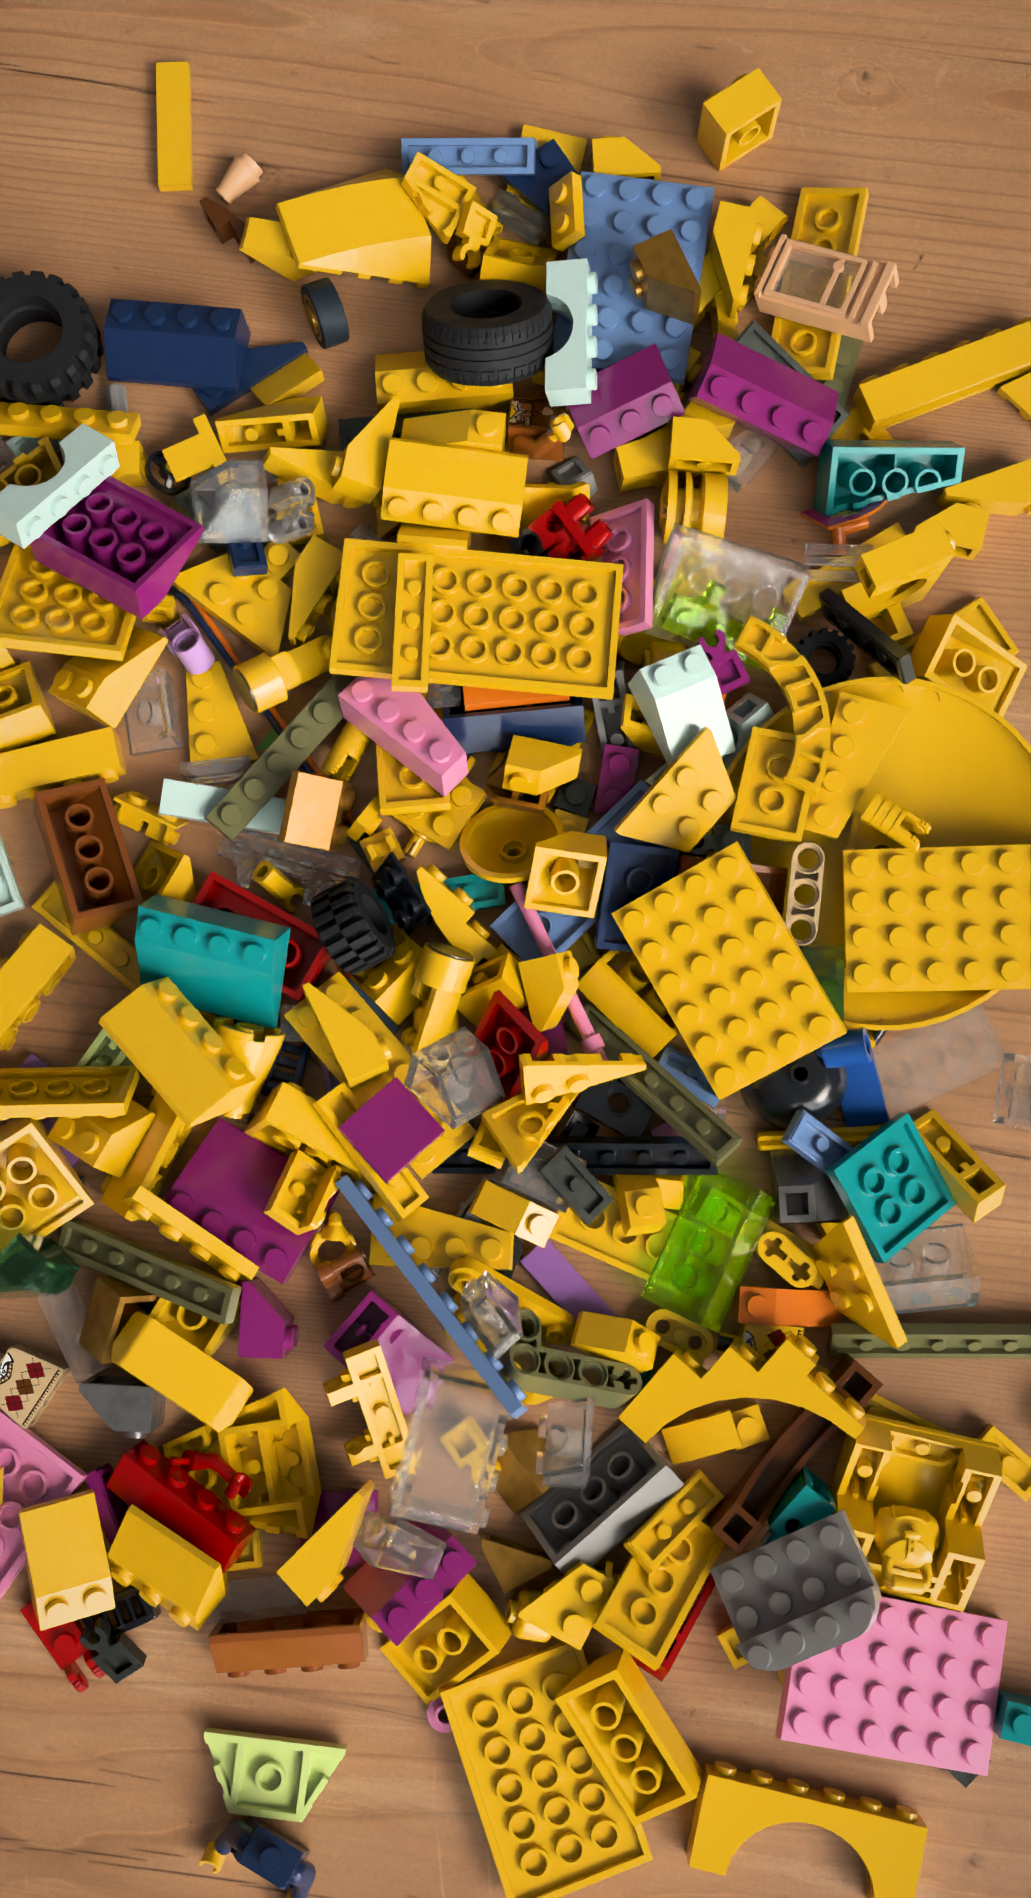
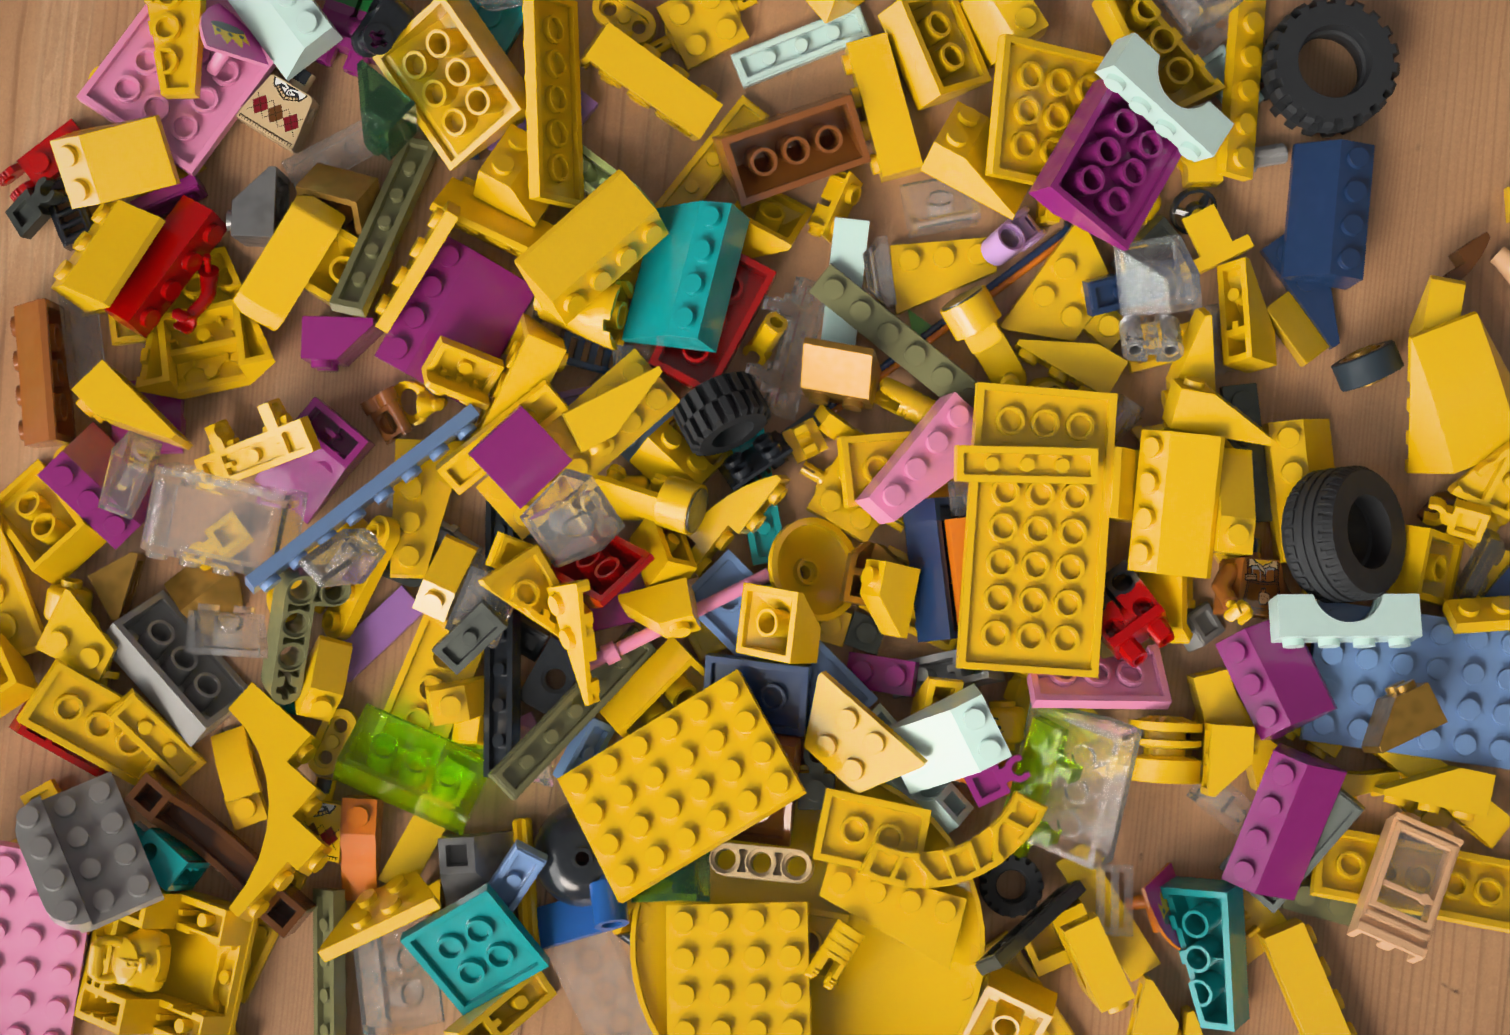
camera: 90 degrees right, 5 degrees up
(791, 1252) = (399, 839): yellow beam -> none

